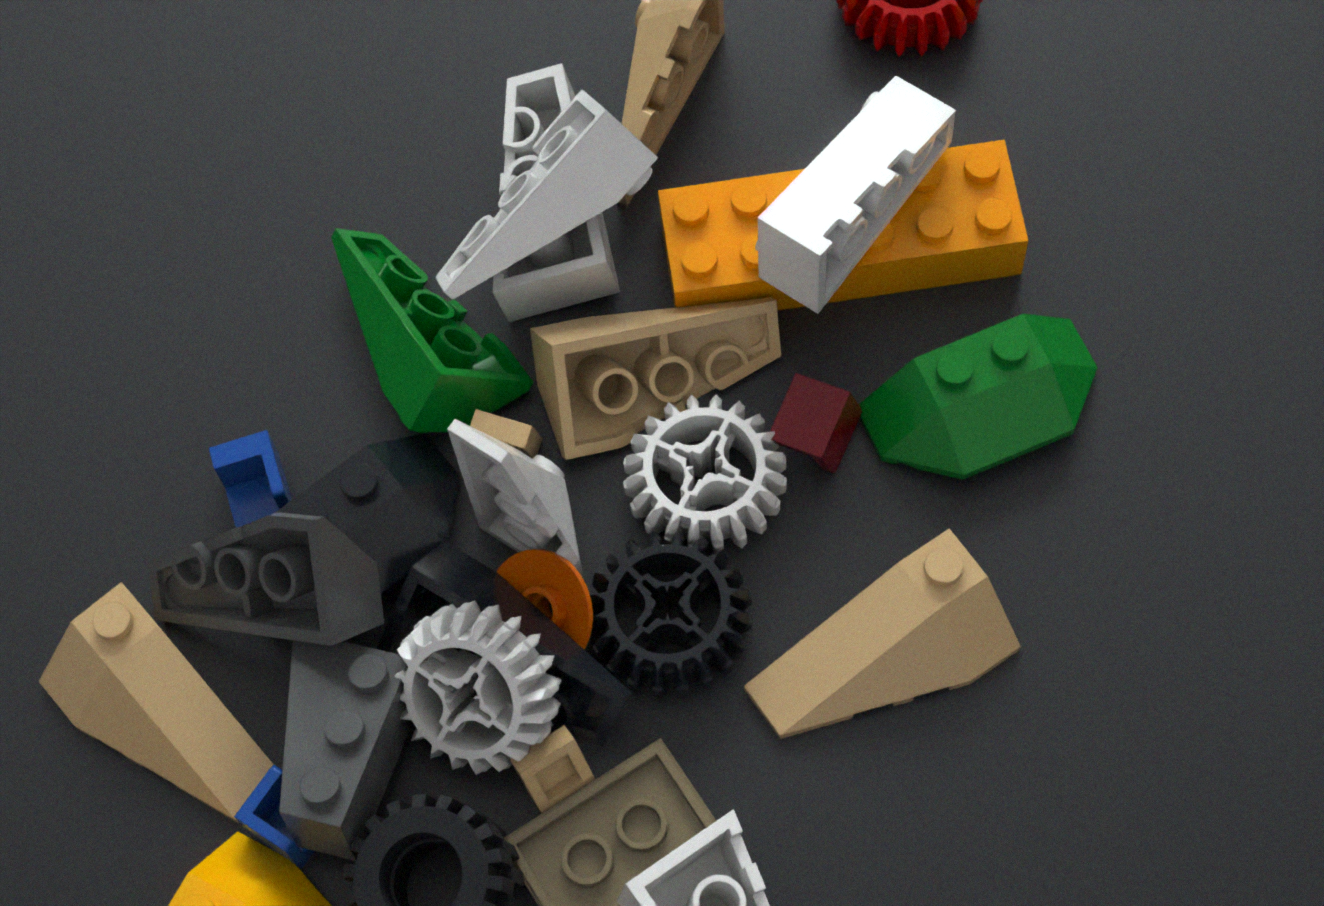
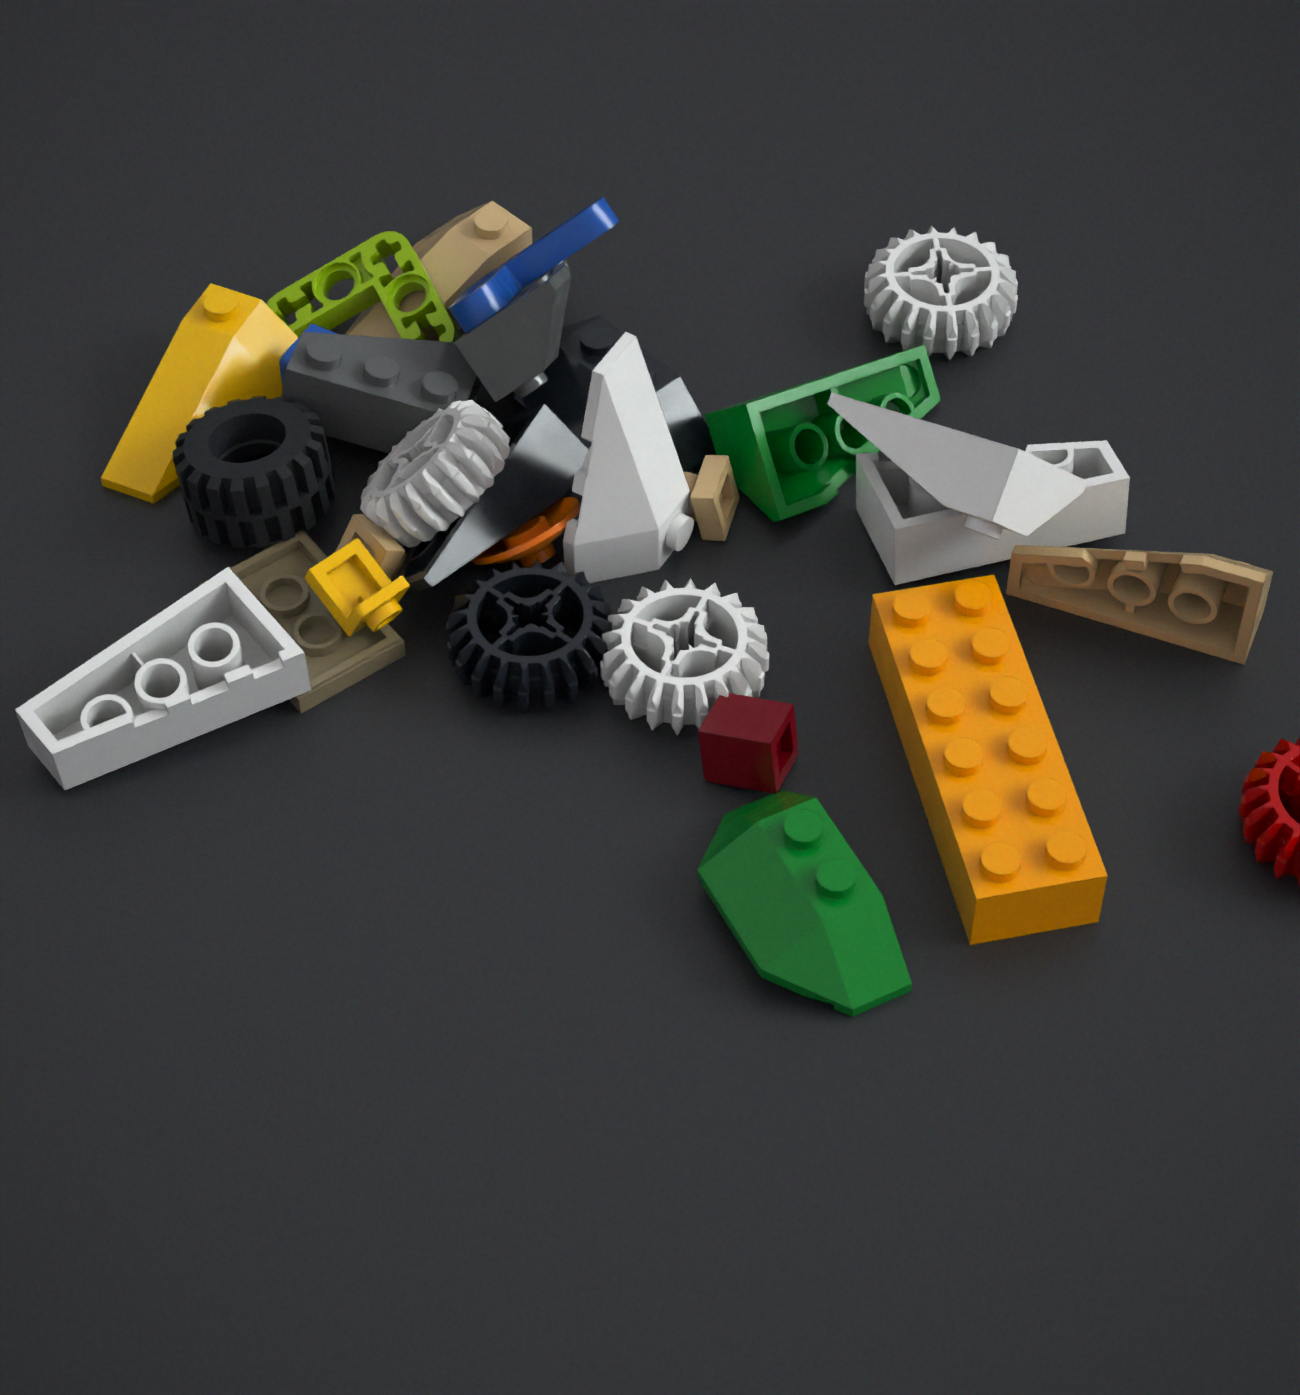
camera: 80 degrees right, 15 degrees down
(166, 759) = (372, 284): none -> lime beam
(207, 621) = (504, 282): none -> blue beam
(251, 476) = (670, 327): blue panel -> none
(273, 232) = (940, 292): none -> white gear
(617, 369) = (806, 591): tan wedge -> none
(617, 769) = (356, 589): none -> yellow bracket
(851, 192) = (986, 697): white wedge -> none
(903, 636) = (516, 827): tan wedge -> none

